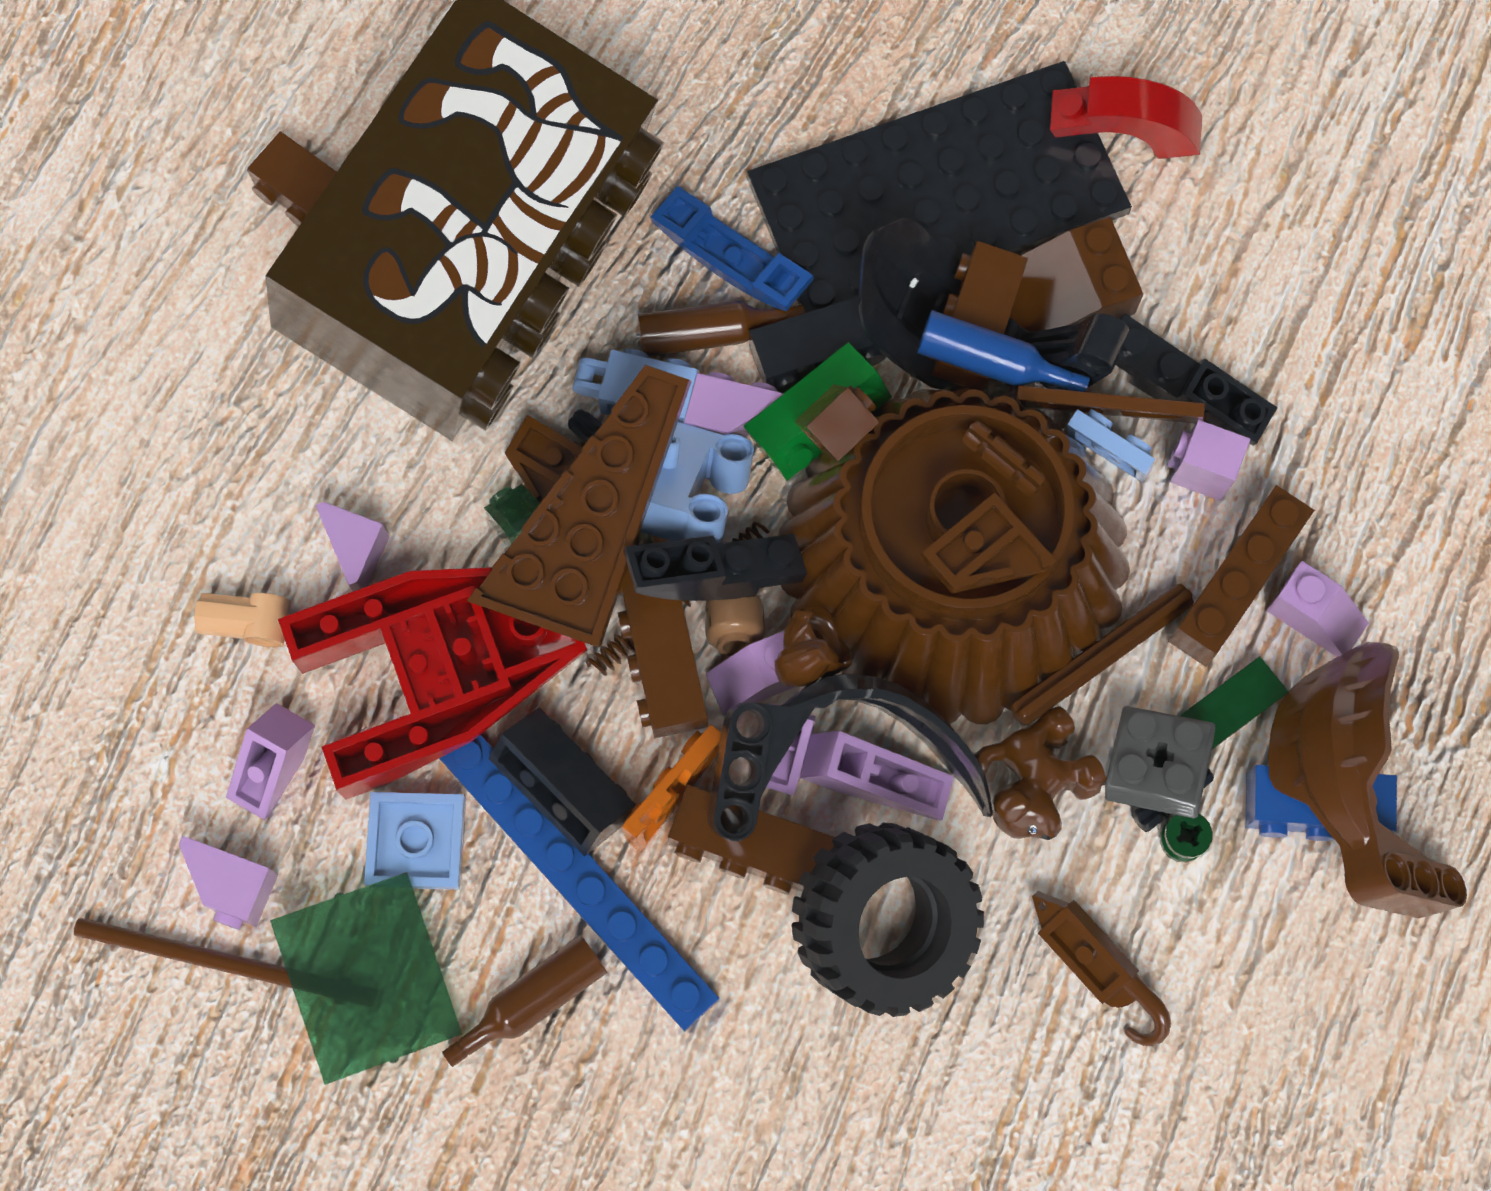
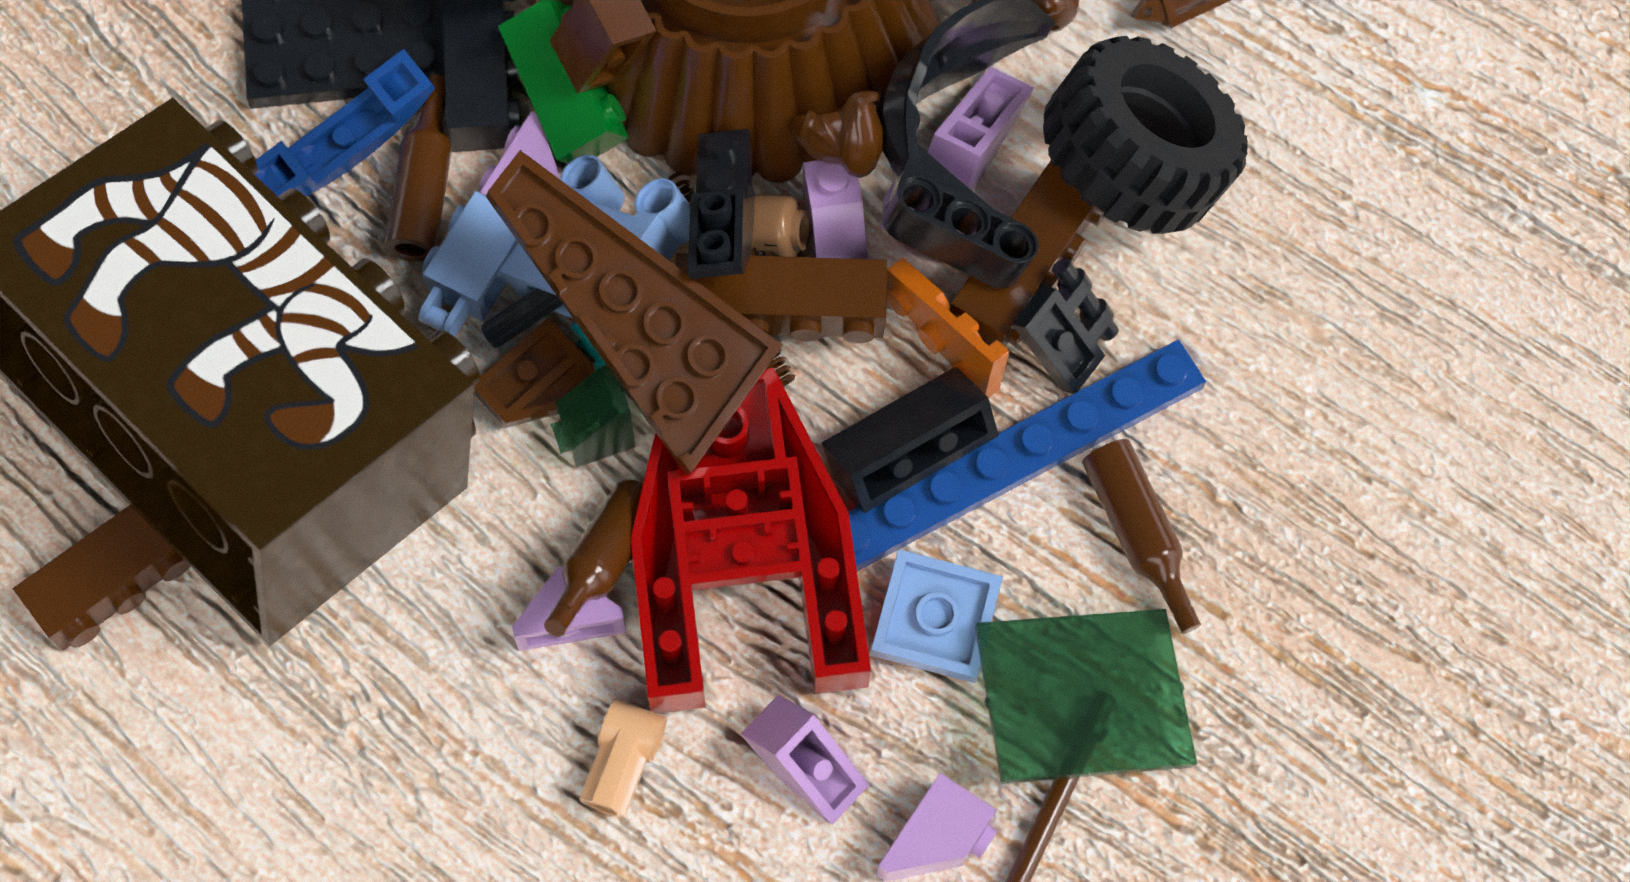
camera: 80 degrees left, 5 degrees down
(387, 549) = (598, 556): none -> reddish brown piece
(682, 888) = (1058, 336): none -> black plate

